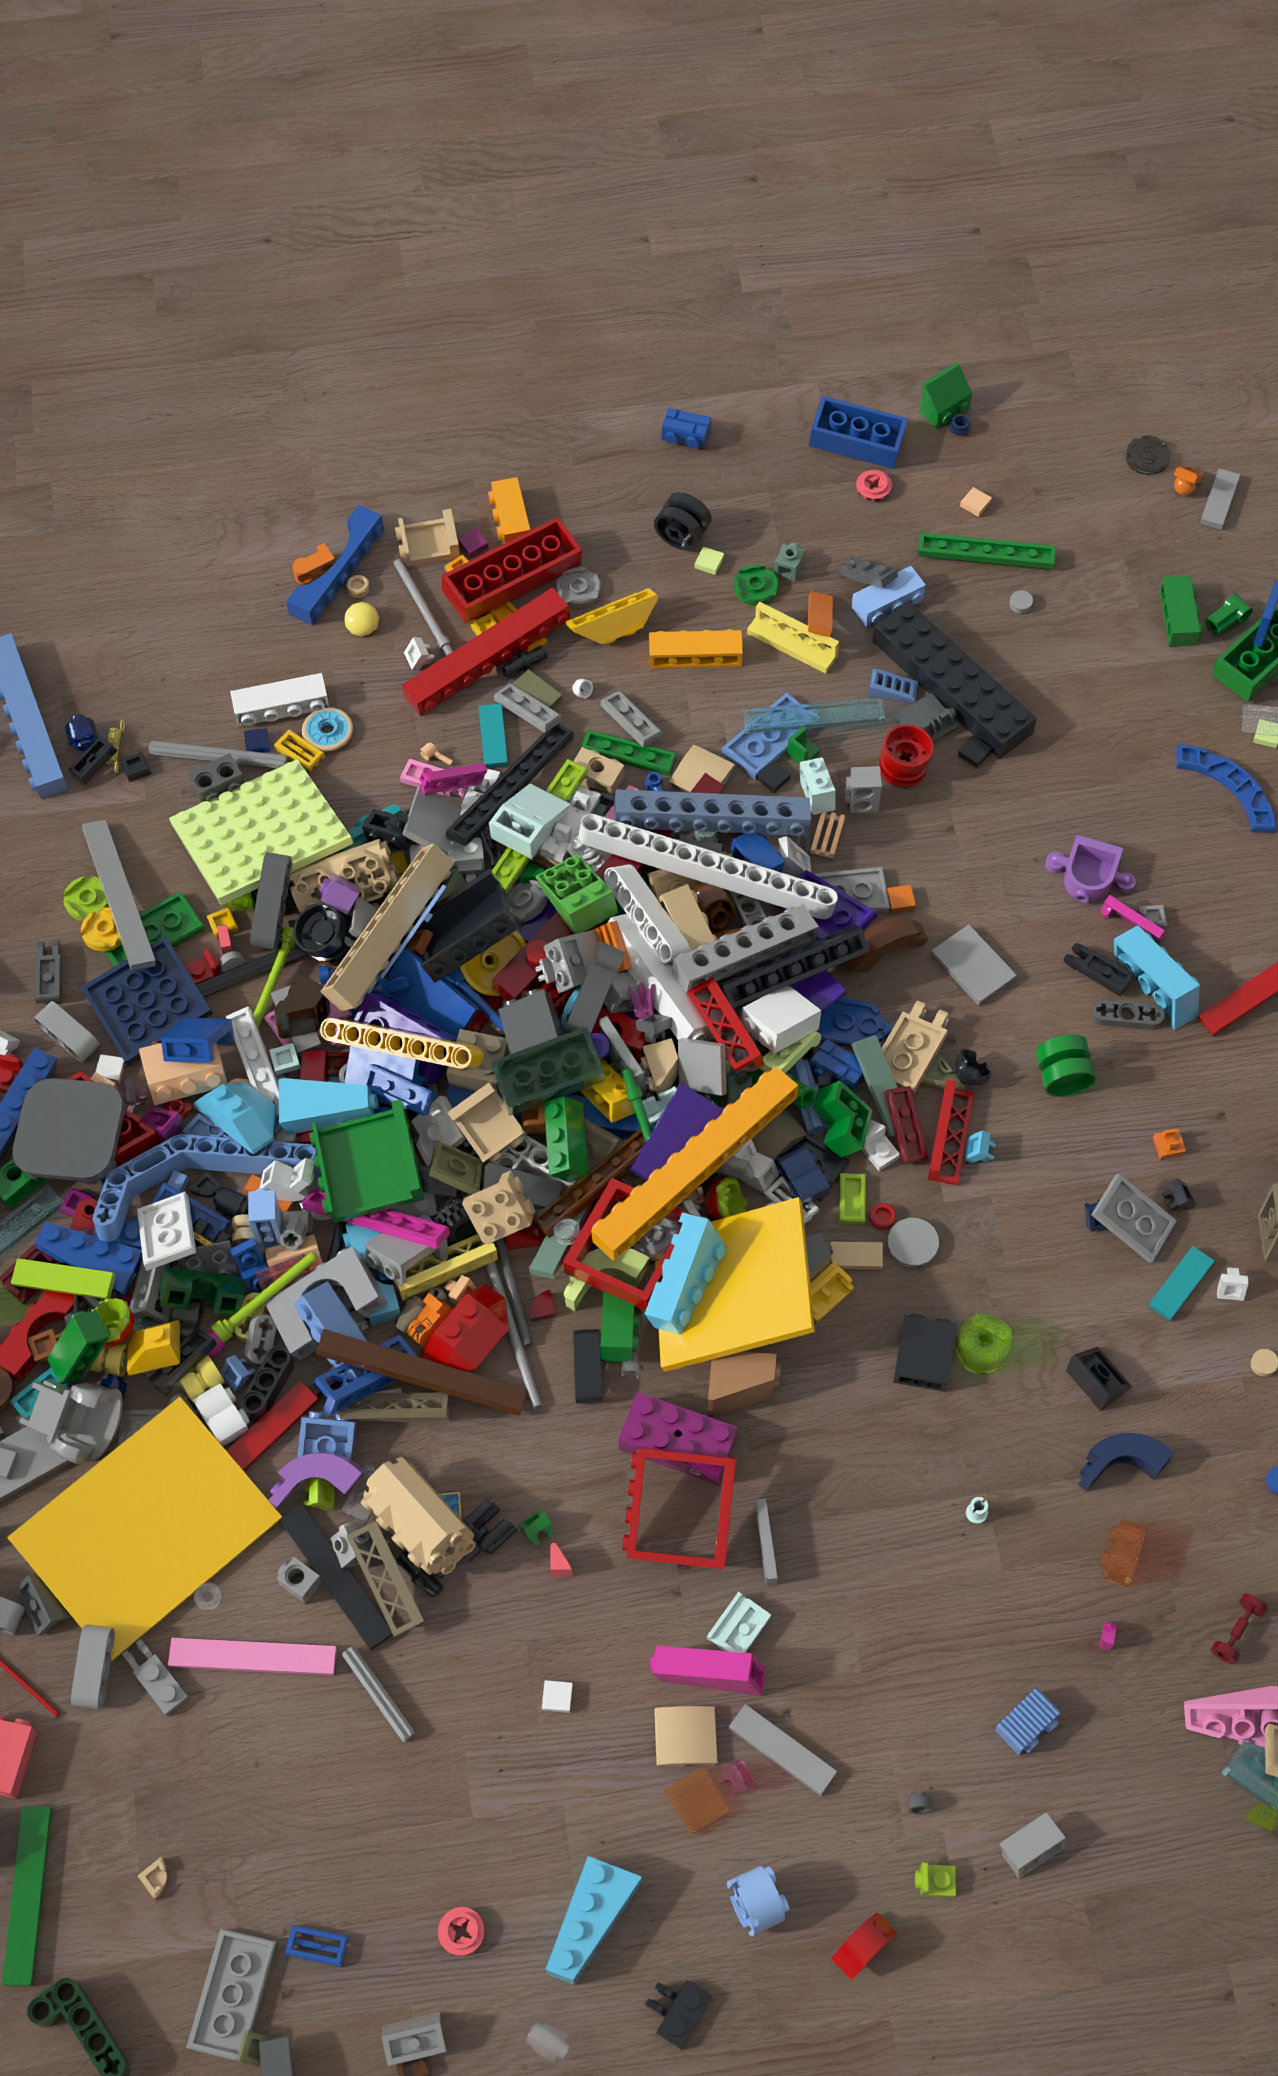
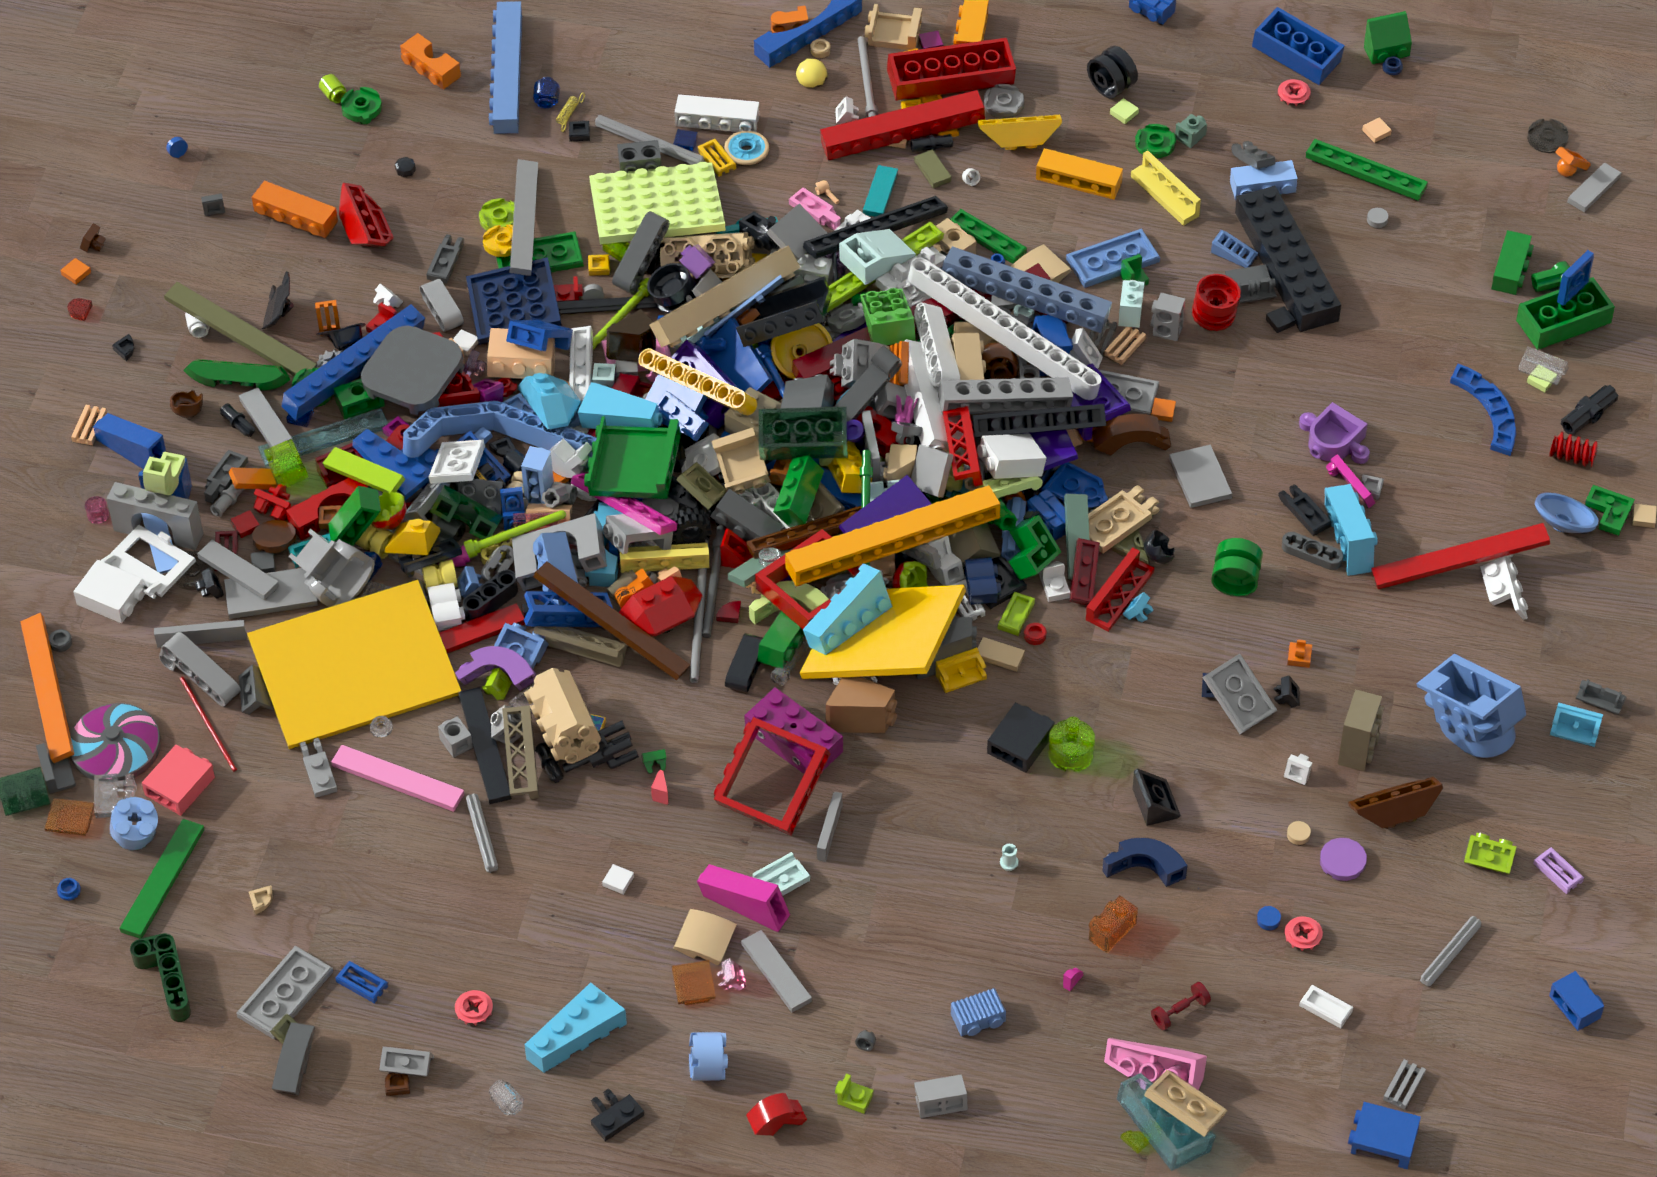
camera: 20 degrees right, 10 degrees down
(92, 1666) = (274, 742): light grey beam -> none
(96, 758) = (546, 115): black tile -> none
(225, 939) = (595, 274): coral tile -> none
(452, 778) = (827, 206): dark pink hinge -> none
(499, 1209) = (722, 522): tan bracket -> none
(527, 707) = (918, 178): light grey tile -> none
(535, 952) = (833, 348): red tile -> none
(631, 718) = (1000, 211): light grey tile -> none
(773, 776) = (1100, 287): black tile -> none
(813, 715) = (1155, 251): clear light blue tile -> none
(820, 613) = (1196, 175): orange tile -> none
(913, 1242) = (1050, 659): light grey tile -> none
(1181, 1283) = (1258, 756): teal tile -> none

